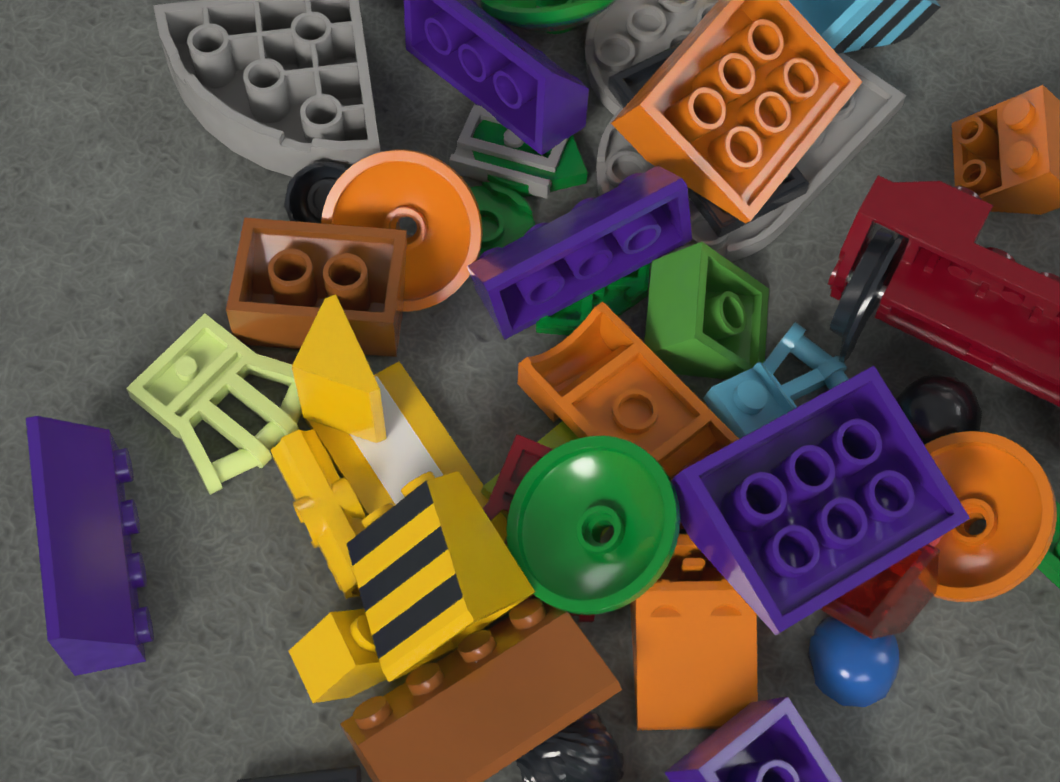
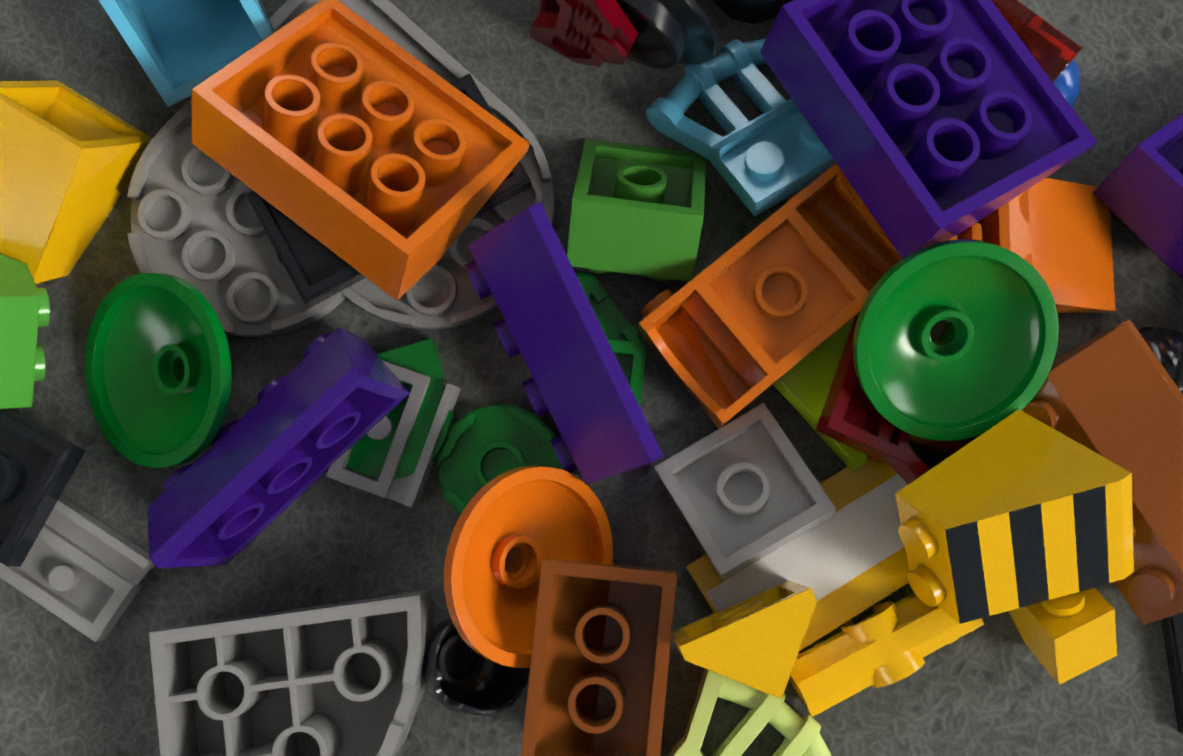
camera: 85 degrees left, 20 degrees up
(462, 397) = (744, 491): none -> light grey plate

